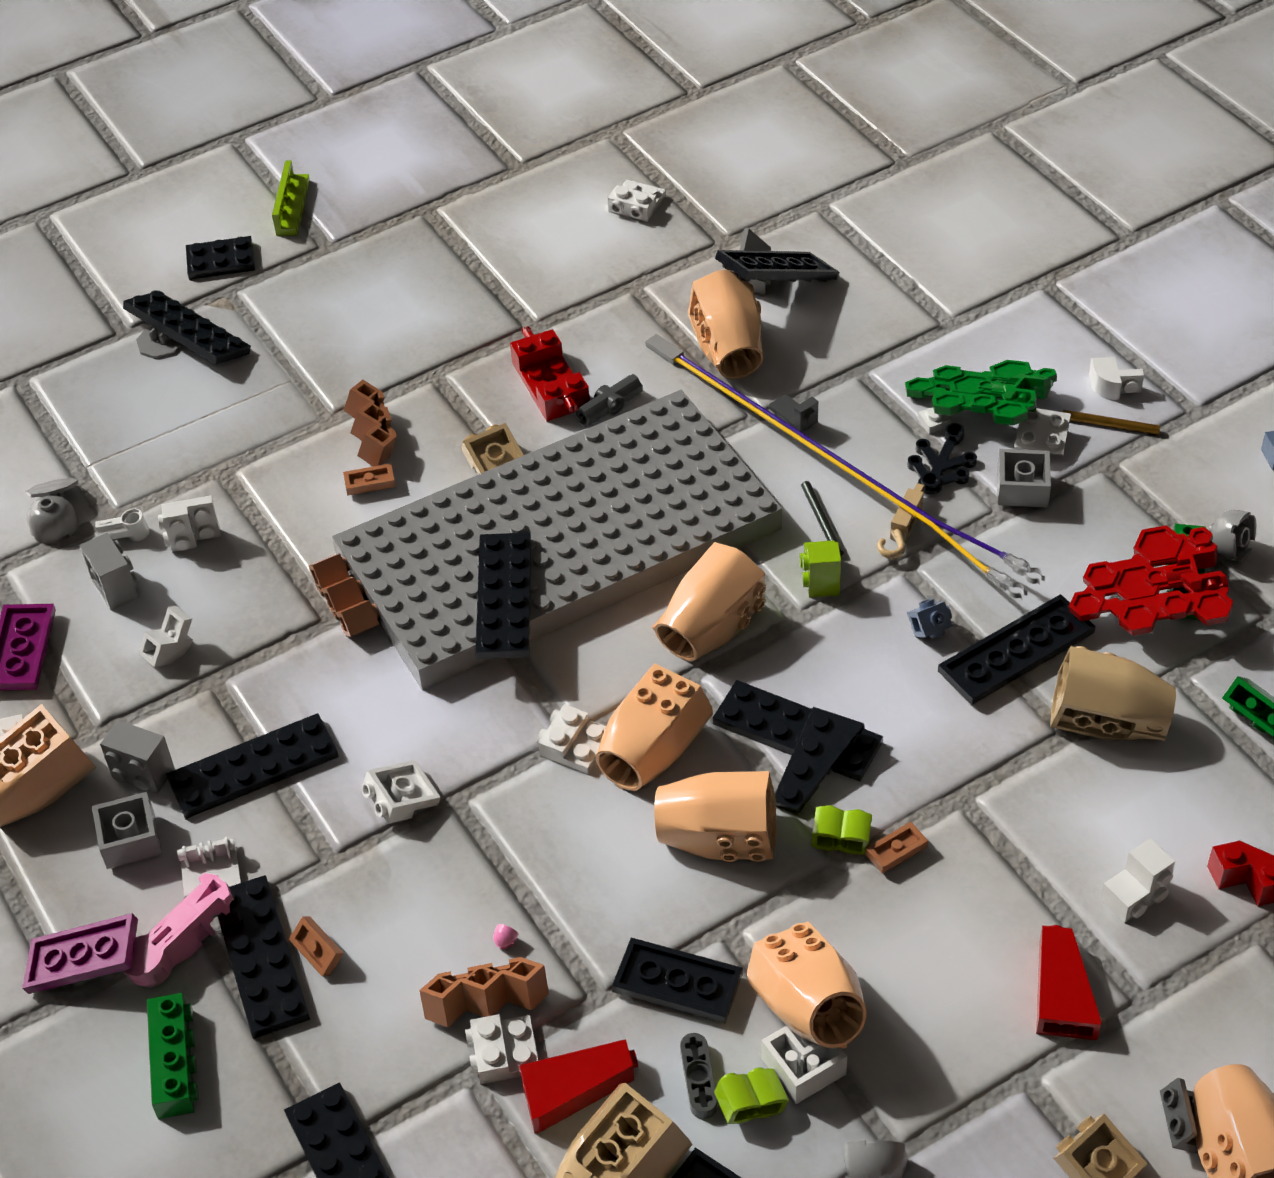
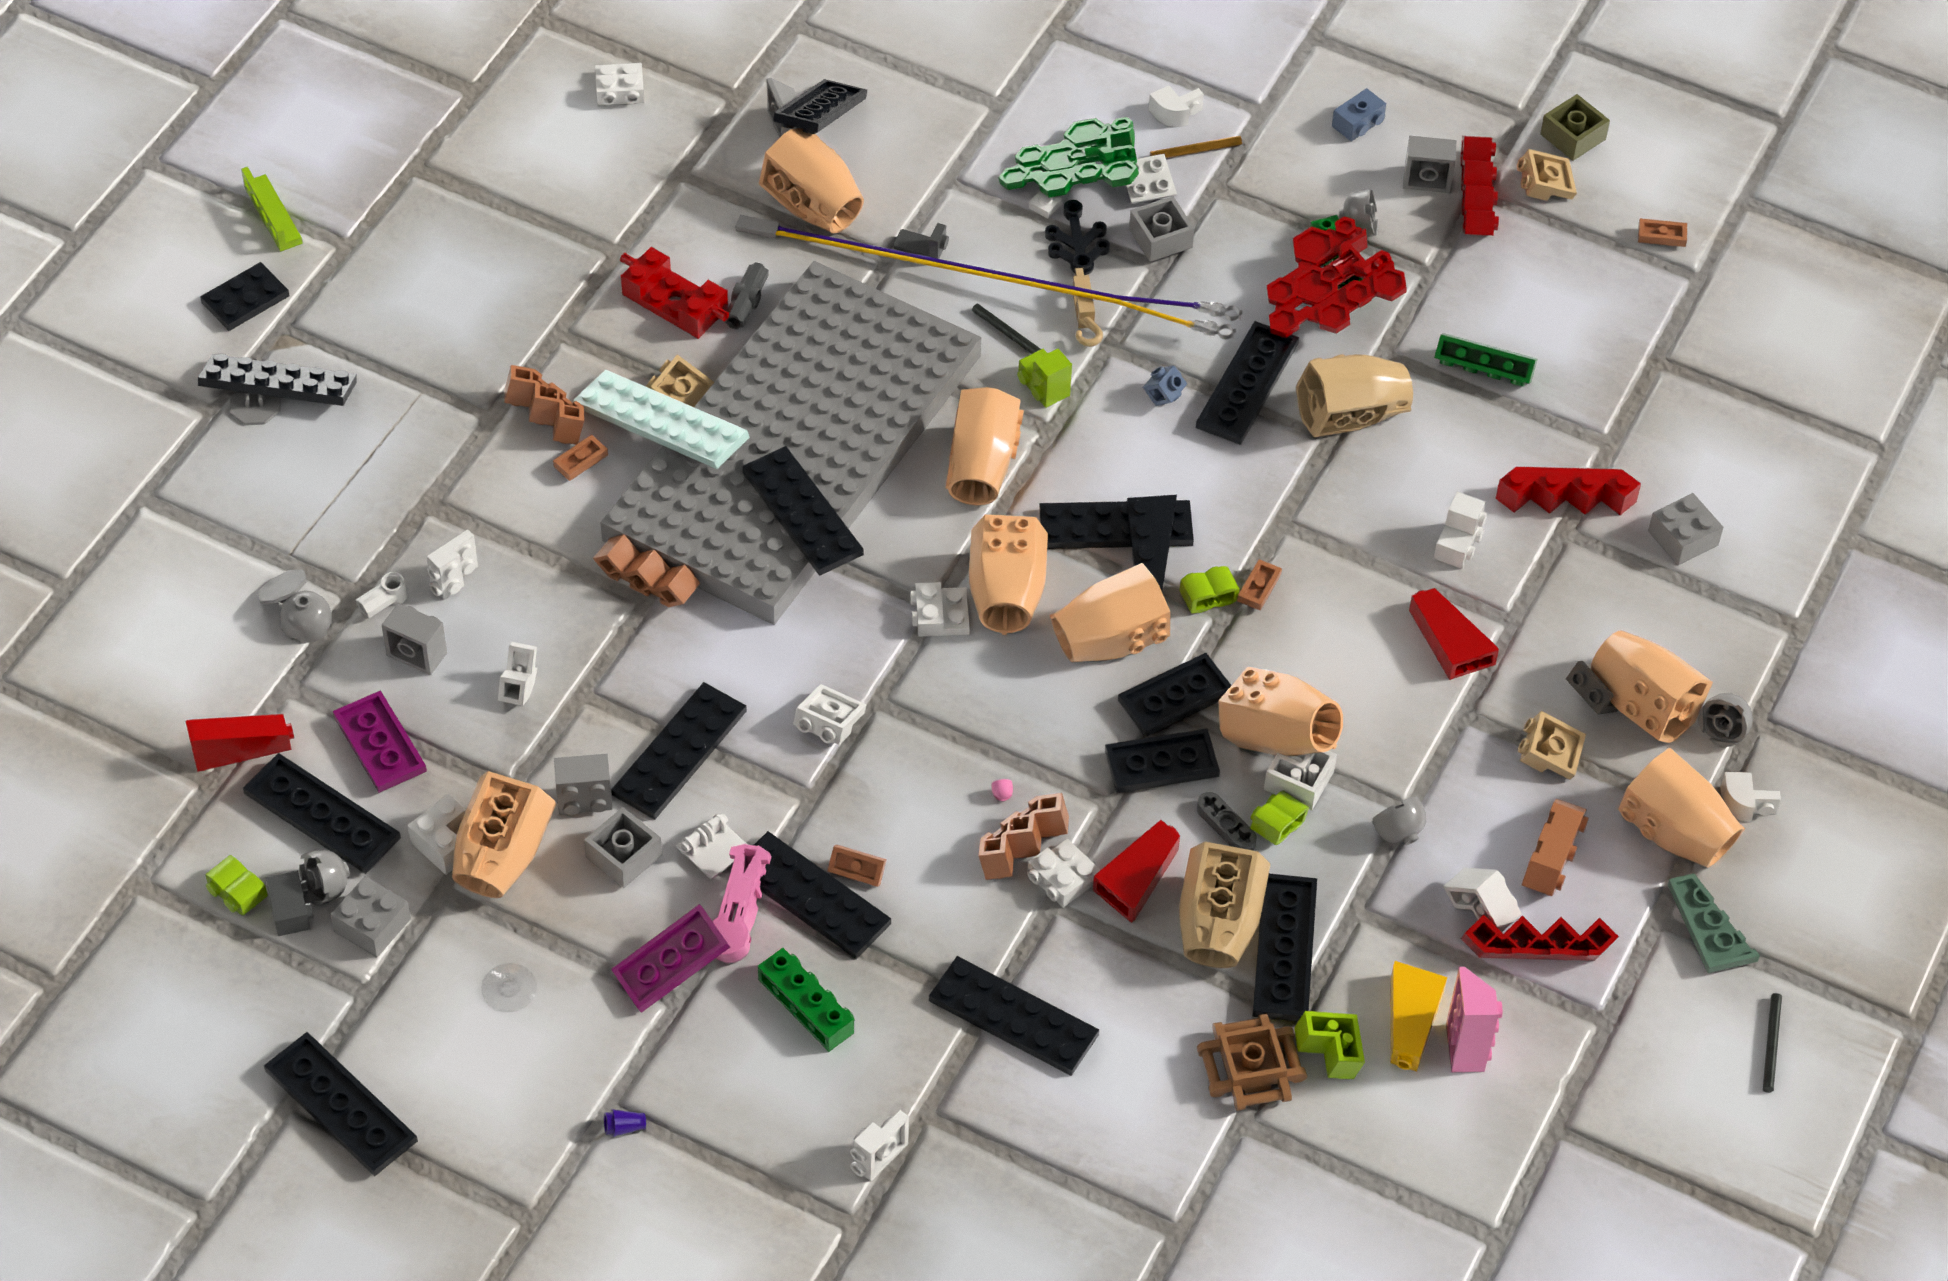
camera: 35 degrees left, 5 degrees up
(449, 471) = (662, 419): none -> light aqua plate
(733, 918) = (1174, 694): none -> black plate

